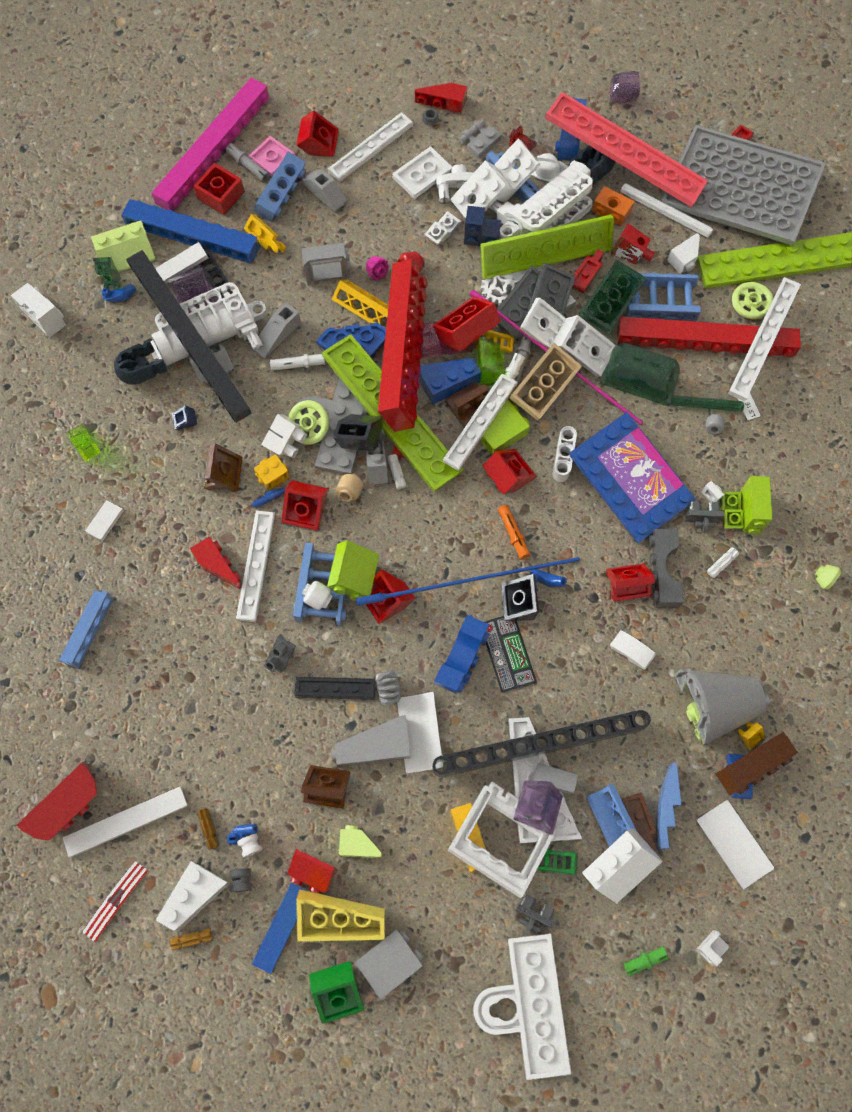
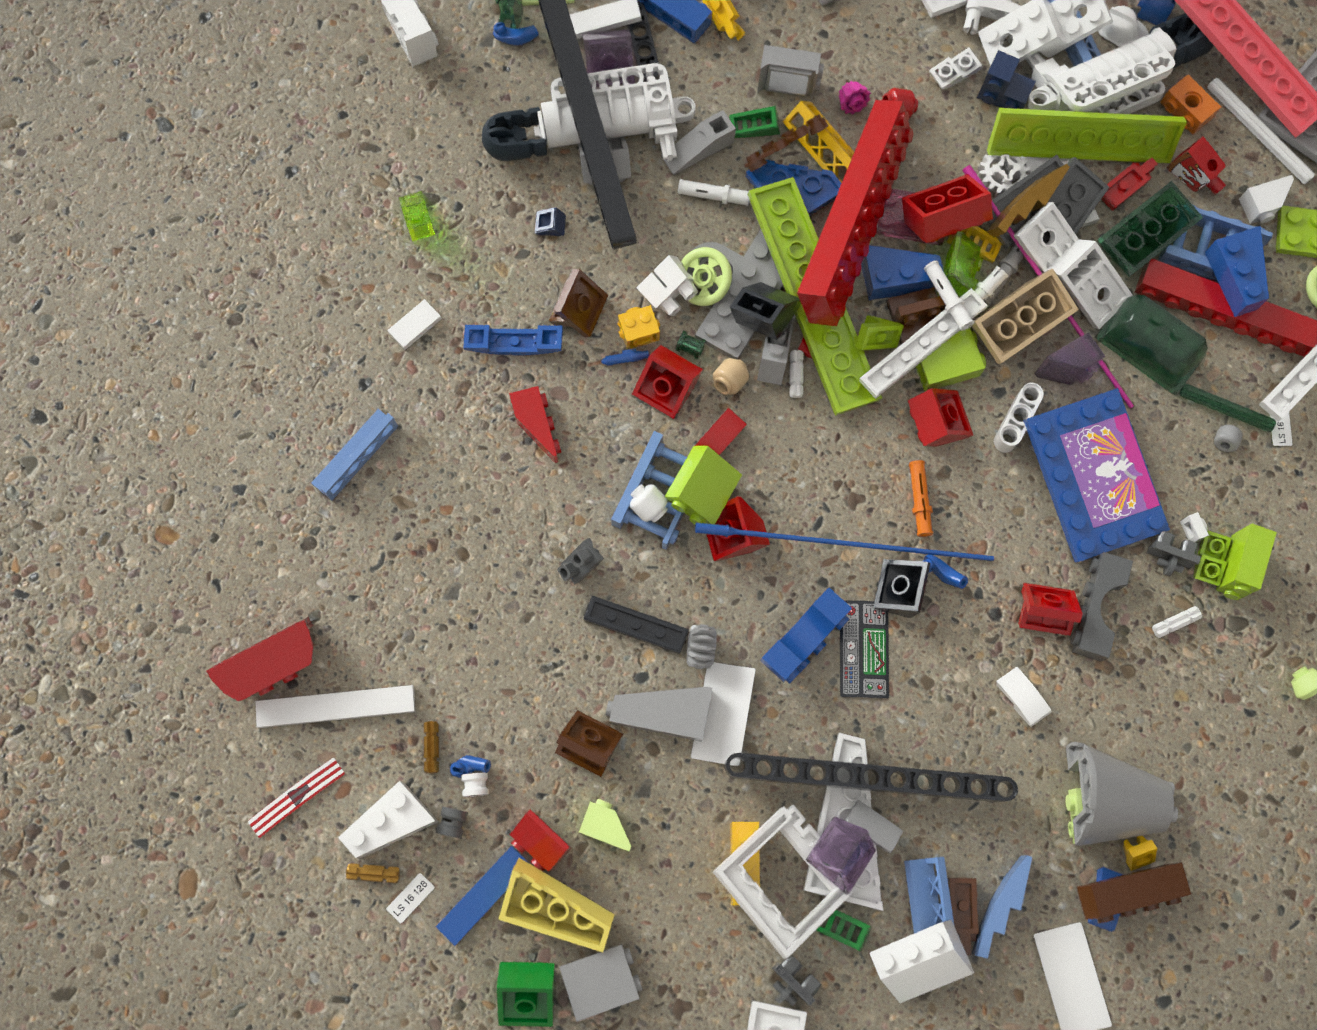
camera: 15 degrees right, 5 degrees up
(181, 511) = (513, 341): none -> blue slope
(225, 949) = (410, 898): none -> white sticker
(255, 566) = (583, 440): white tile -> none
(314, 474) = (690, 345): none -> clear green bush
(320, 308) = (754, 115): none -> green slope
(321, 330) = (758, 159): none -> reddish brown plant
(356, 527) = (722, 431): none -> red slope
(446, 425) = (878, 334): none -> lime slope
(492, 387) = (953, 303): none -> white pin
(522, 301) = (1030, 199): none -> pearl gold slope
(589, 403) = (1072, 362): none -> clear purple slope
(684, 305) = (1240, 270): none -> blue wedge

